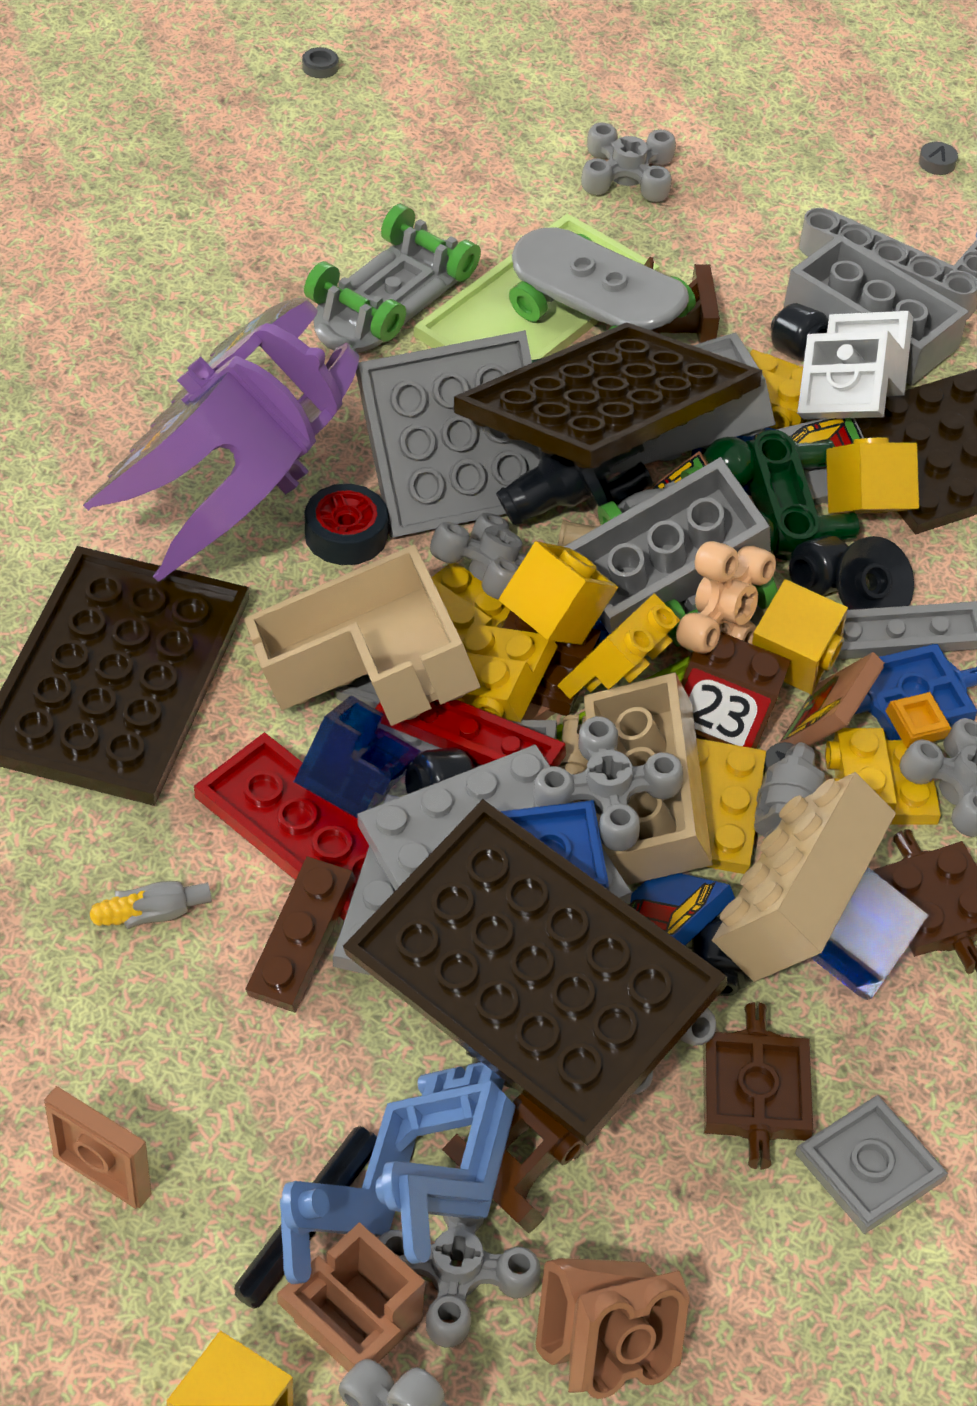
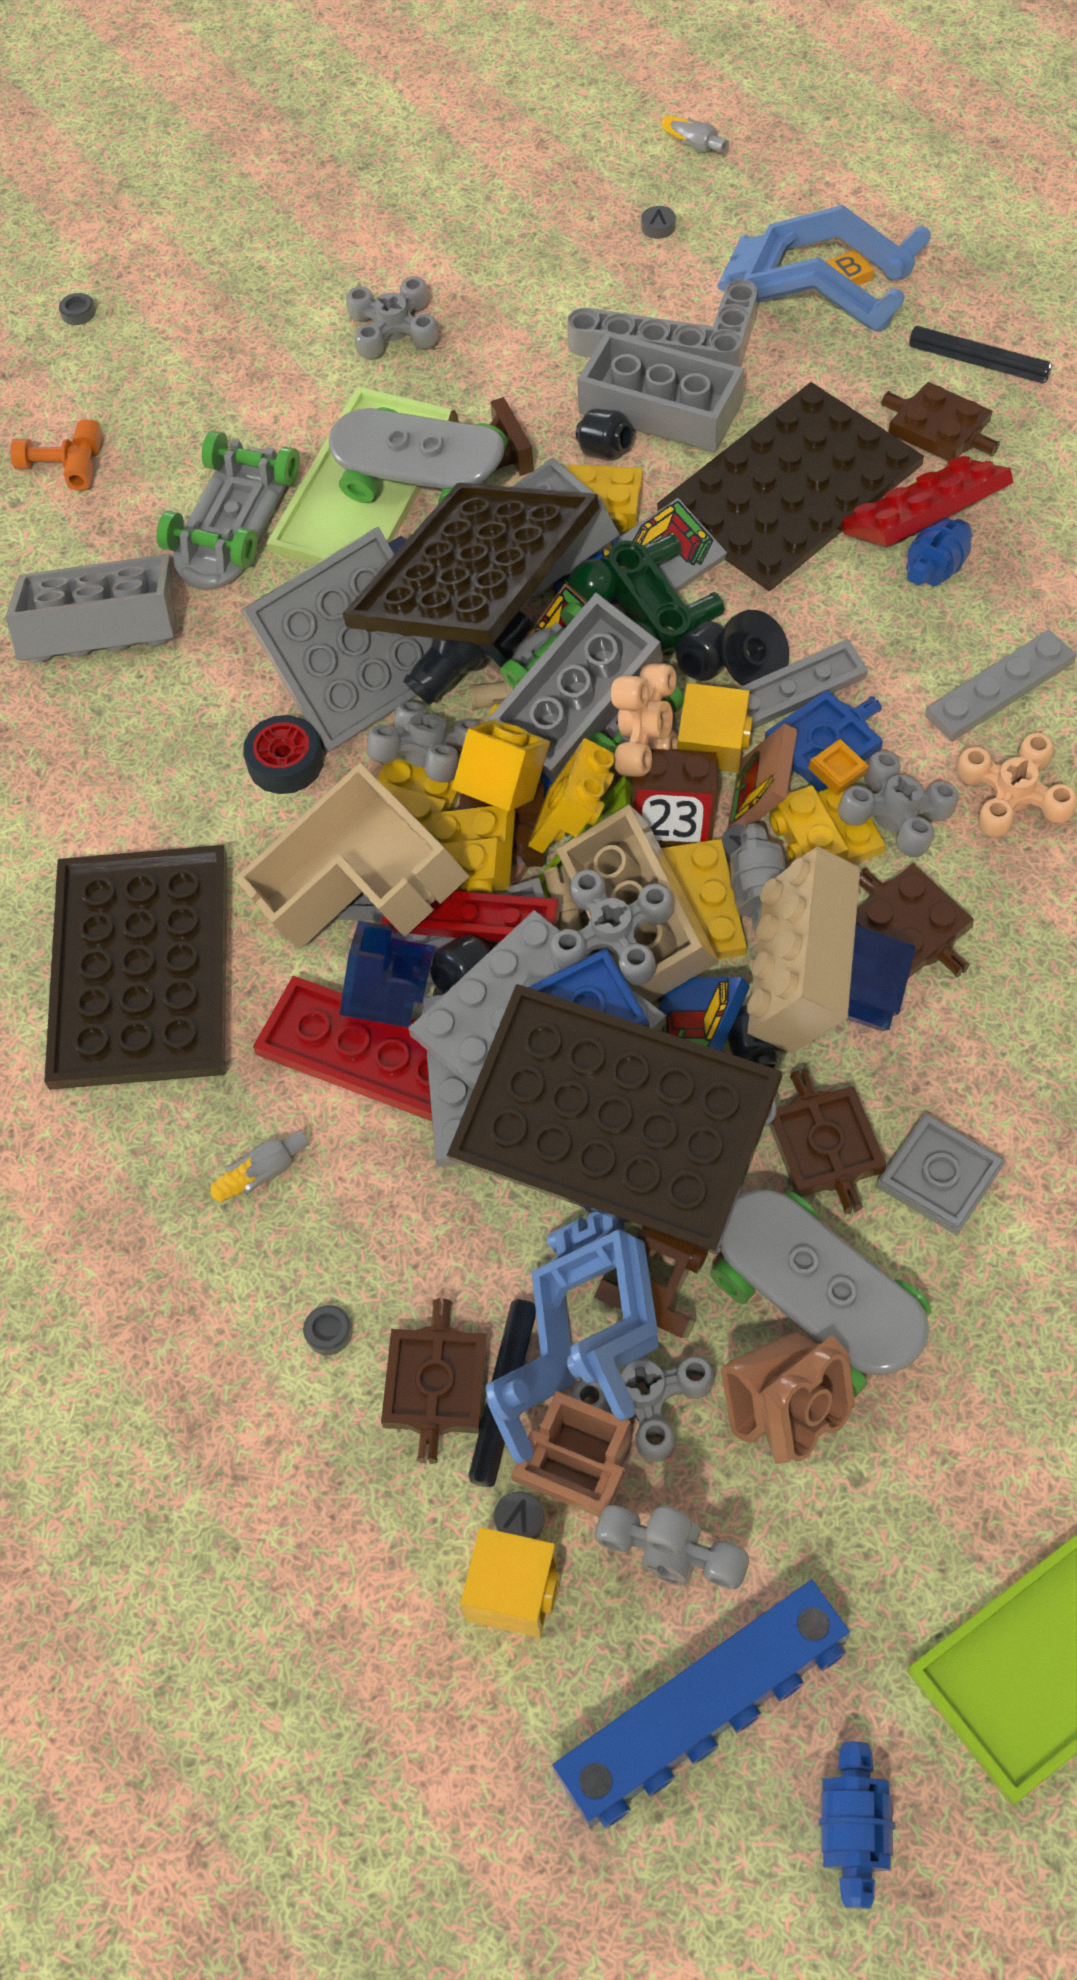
camera: 10 degrees left, 10 degrees up
(98, 1148) = (309, 1404): nougat tile -> none
(151, 1089) = (327, 1330): none -> dark grey tile
(189, 322) = (92, 608): none -> light grey slope
(238, 1177) = (435, 1381): none -> reddish brown plate
(241, 410) = (159, 696): medium lavender animal -> none
(257, 188) = (73, 454): none -> orange bar
(274, 1342) = (519, 1515): none -> dark grey tile
(300, 934) = (398, 1147): reddish brown plate -> none
(690, 1221) = (821, 1283): none -> light grey piece
(855, 365) = (667, 454): white bracket -> none
(872, 477) = (720, 555): yellow head -> none

